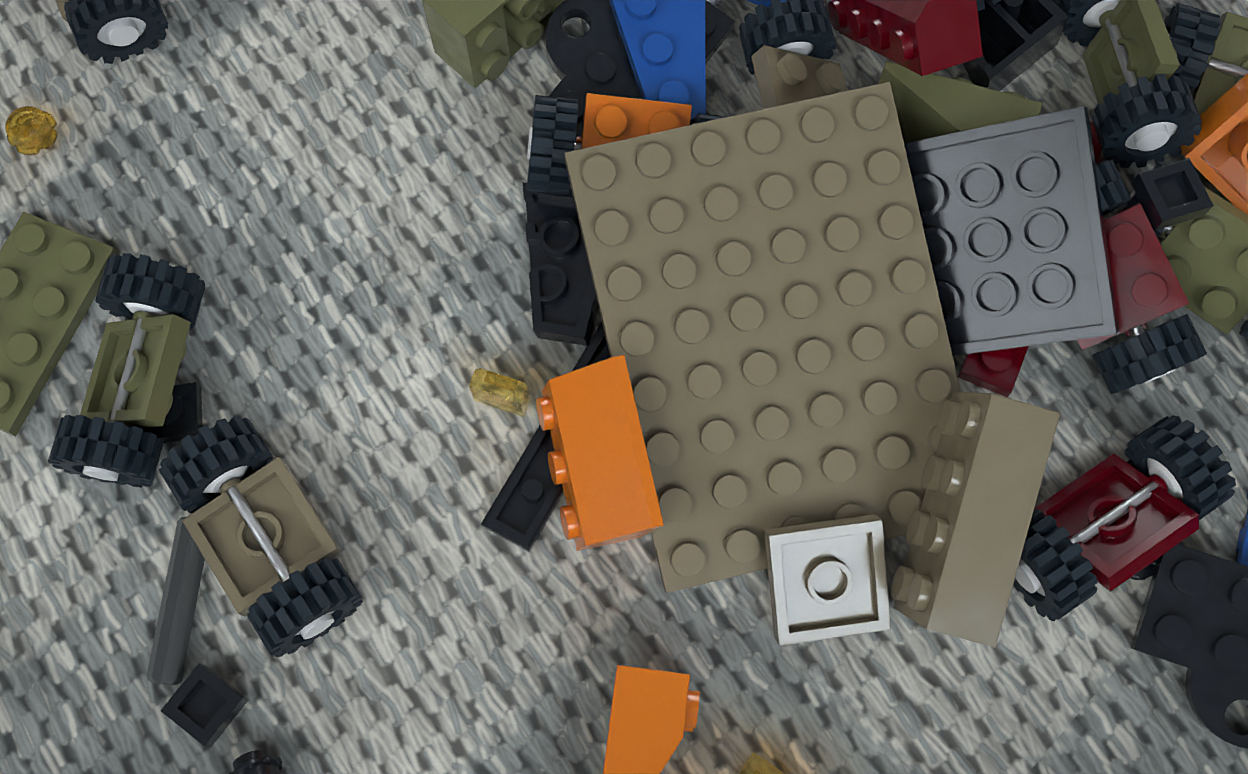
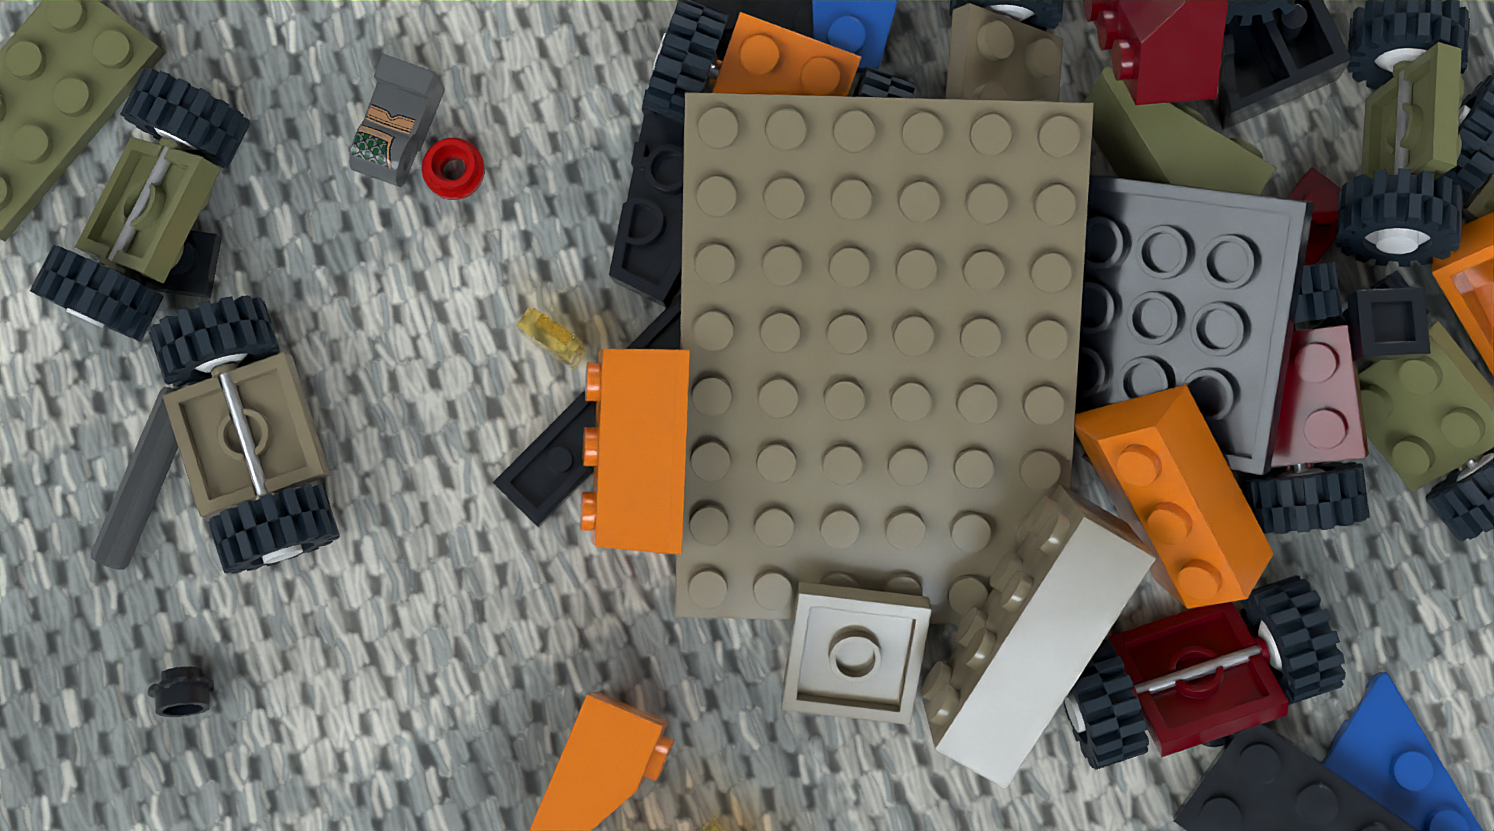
camera: 15 degrees right, 10 degrees up
(204, 705) = (145, 602): black plate -> none
(325, 254) = (395, 120): none -> dark grey leg
(381, 267) = (444, 152): none -> red plate
(1038, 356) = (1177, 495): none -> orange slope

